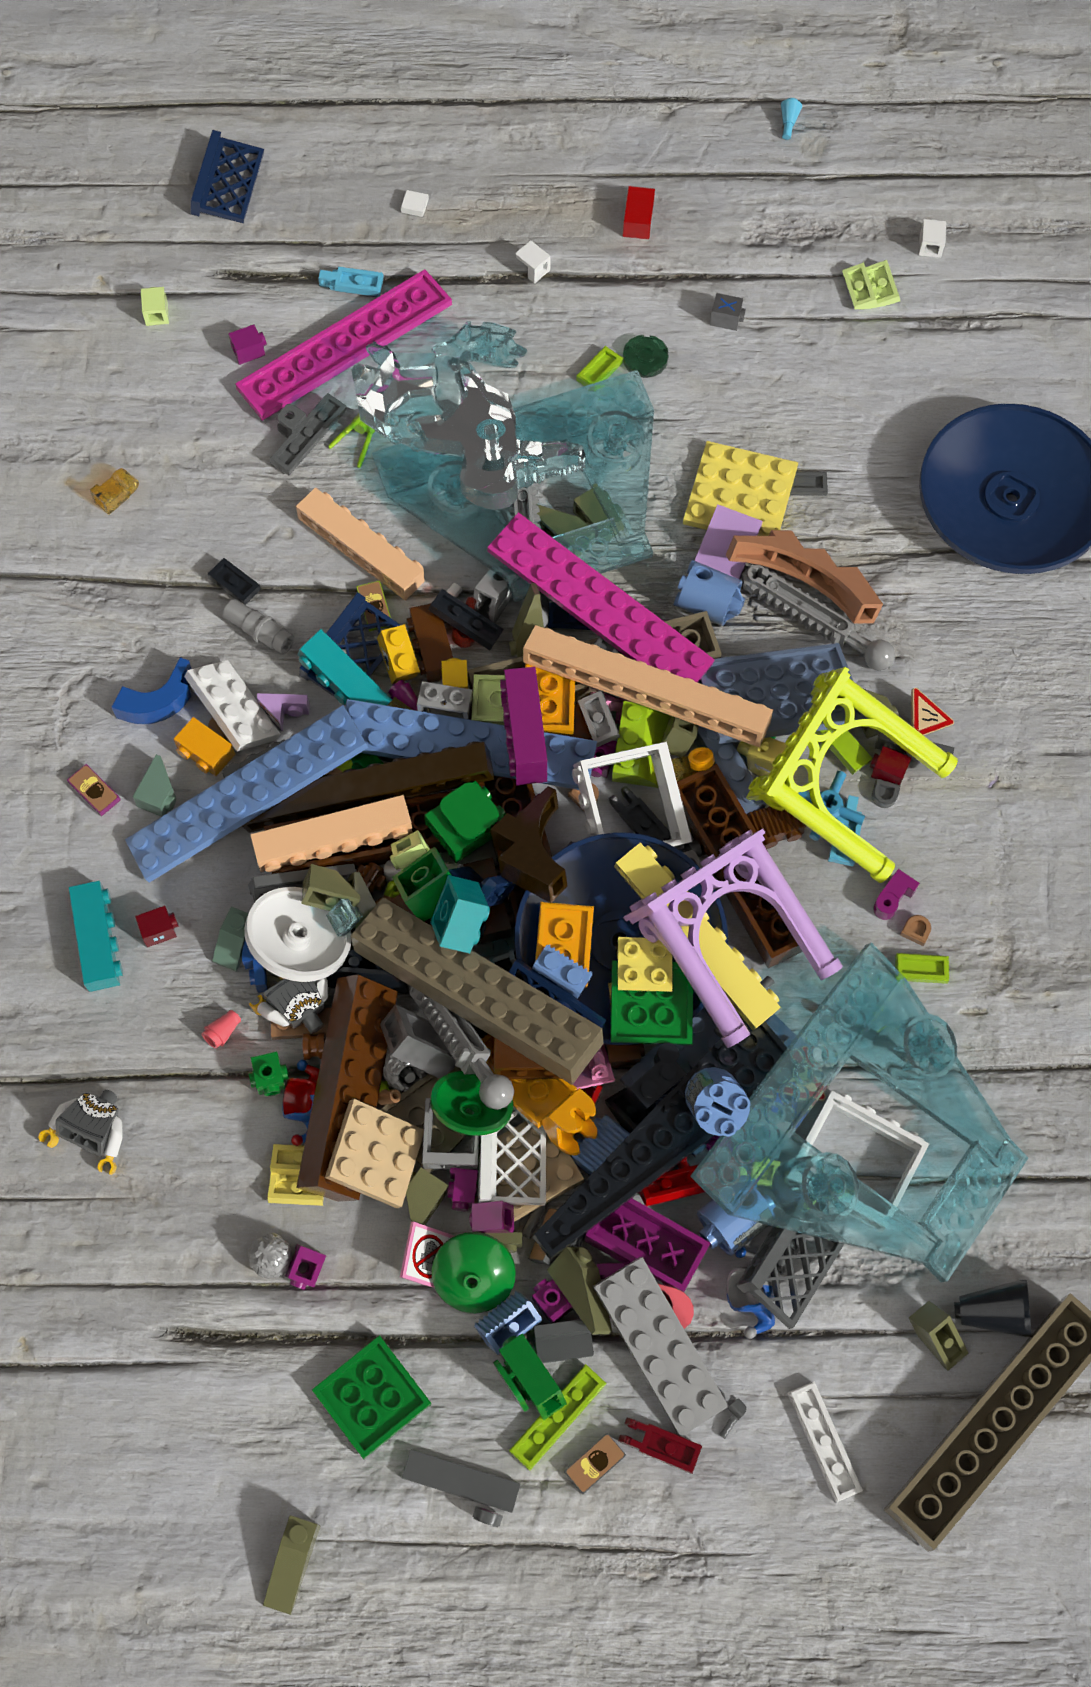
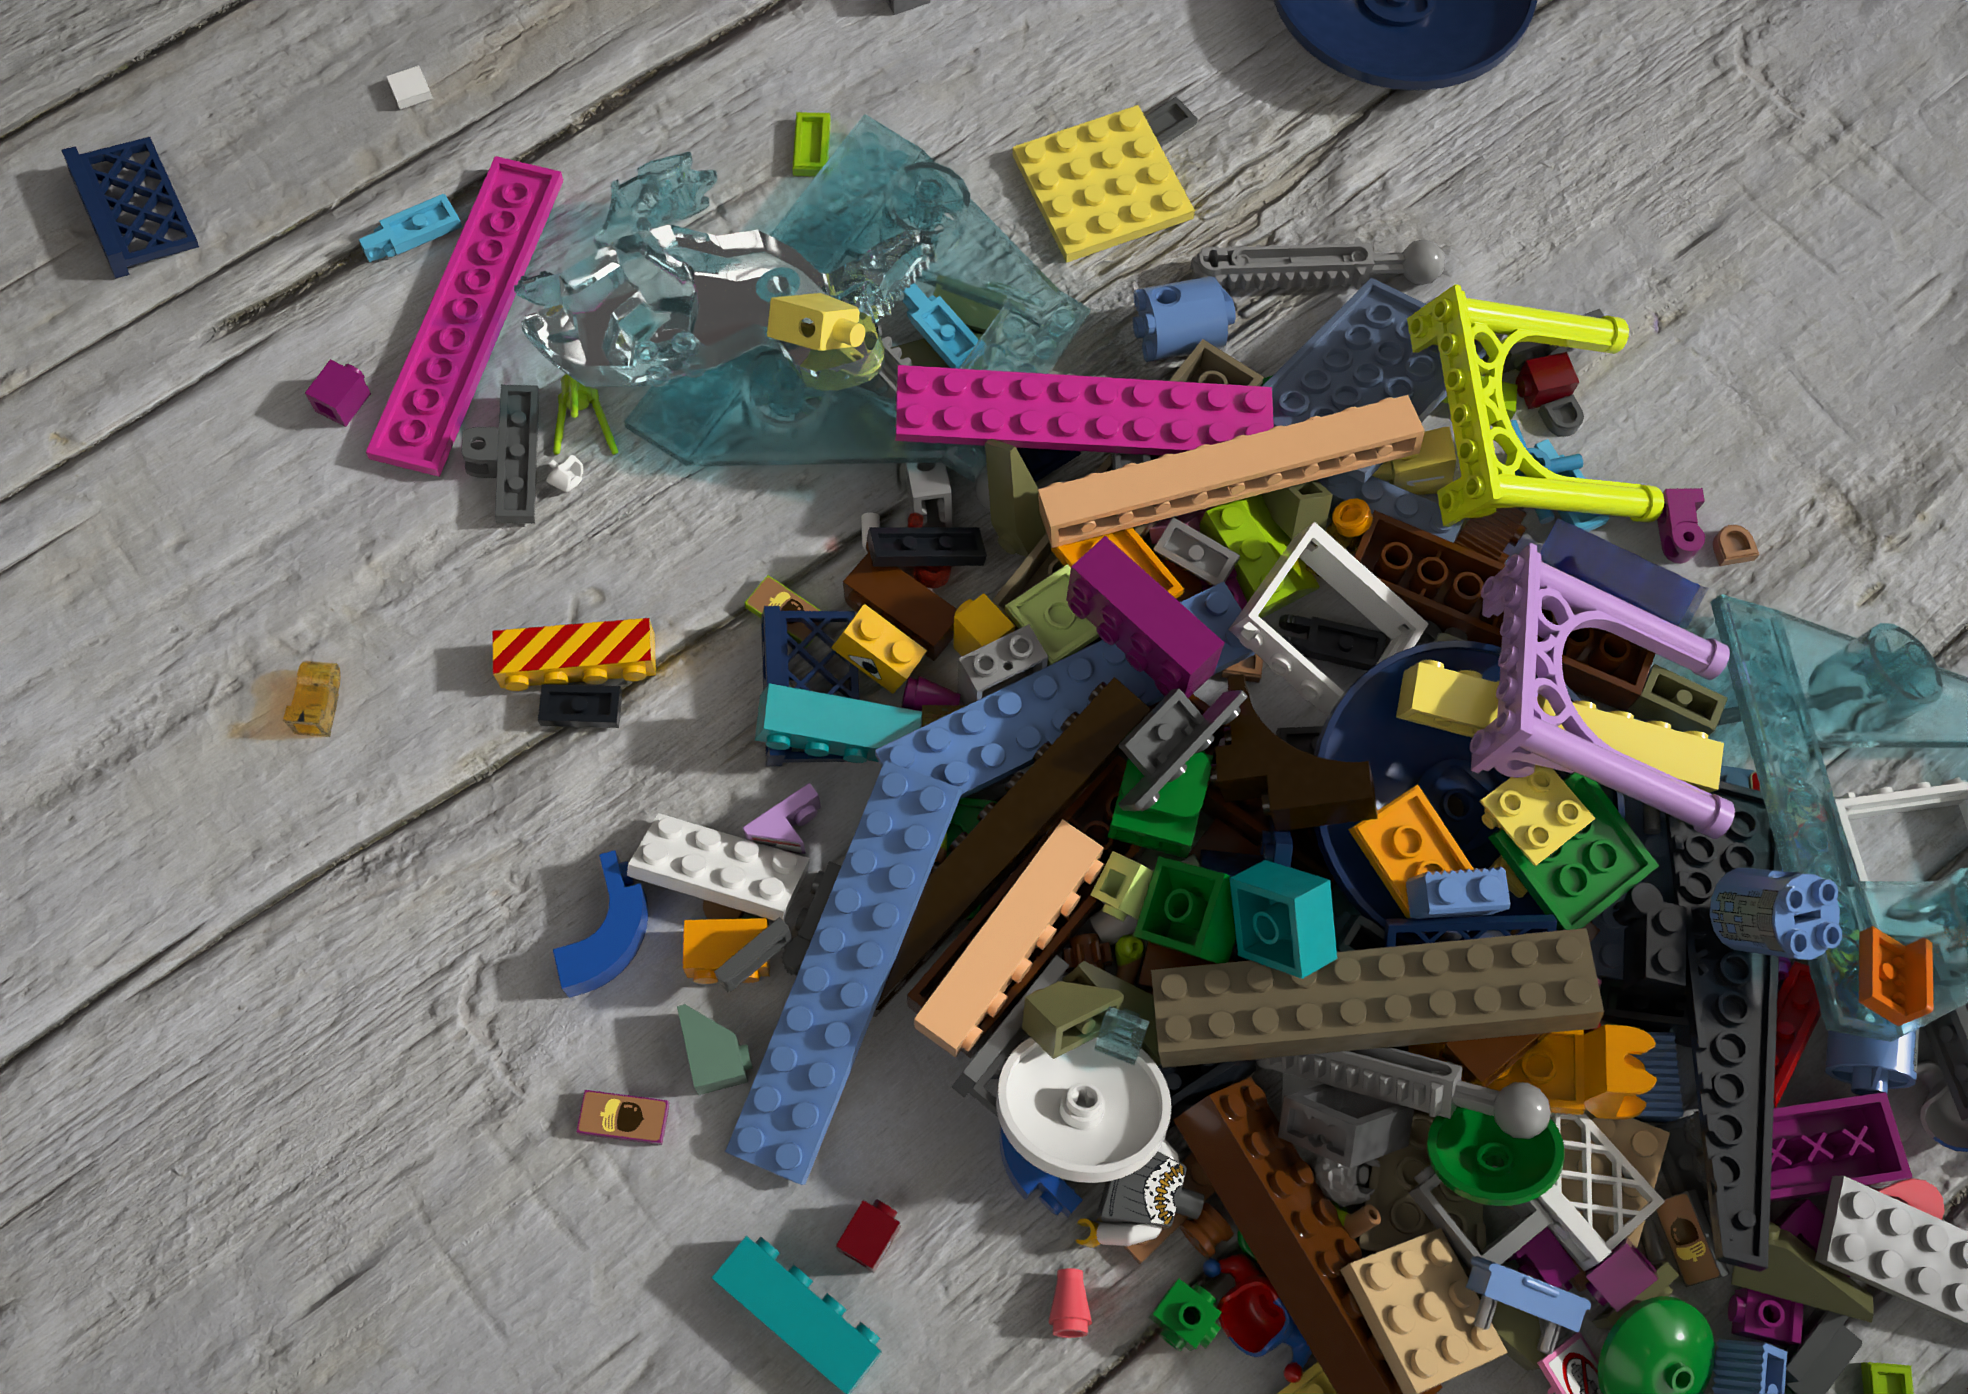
camera: 40 degrees left, 0 degrees up
(154, 306) = (167, 423): yellowish green brick -> none
(207, 754) = (754, 955): none -> dark grey tile
(231, 940) = (985, 1172): sand green slope -> none
(252, 554) = (574, 653): none -> yellow brick
(260, 627) = (664, 740): light grey piece -> none
(323, 461) = (566, 475): none -> white piece
(360, 543) = (703, 544): light nougat brick -> none
(432, 1186) = (1527, 1294): none -> medium blue piece
(481, 789) = (1169, 739): none -> dark grey bracket
(490, 464) = (833, 324): none -> light yellow torso
(536, 260) = (625, 59): white panel -> none
(570, 507) = (939, 326): none -> medium azure hinge
(646, 355) = (851, 94): clear green tile -> none
(719, 535) = (1143, 245): lavender tile -> none
(750, 1178) = (1895, 977): none -> orange bracket
(793, 981) = (1678, 702): none -> olive brick
(813, 566) = (1268, 209): nougat arch -> none
(828, 897) = (1622, 573): none -> clear blue wedge
(923, 967) = (1780, 583): lime tile -> none
(926, 715) = (1528, 290): piece -> none

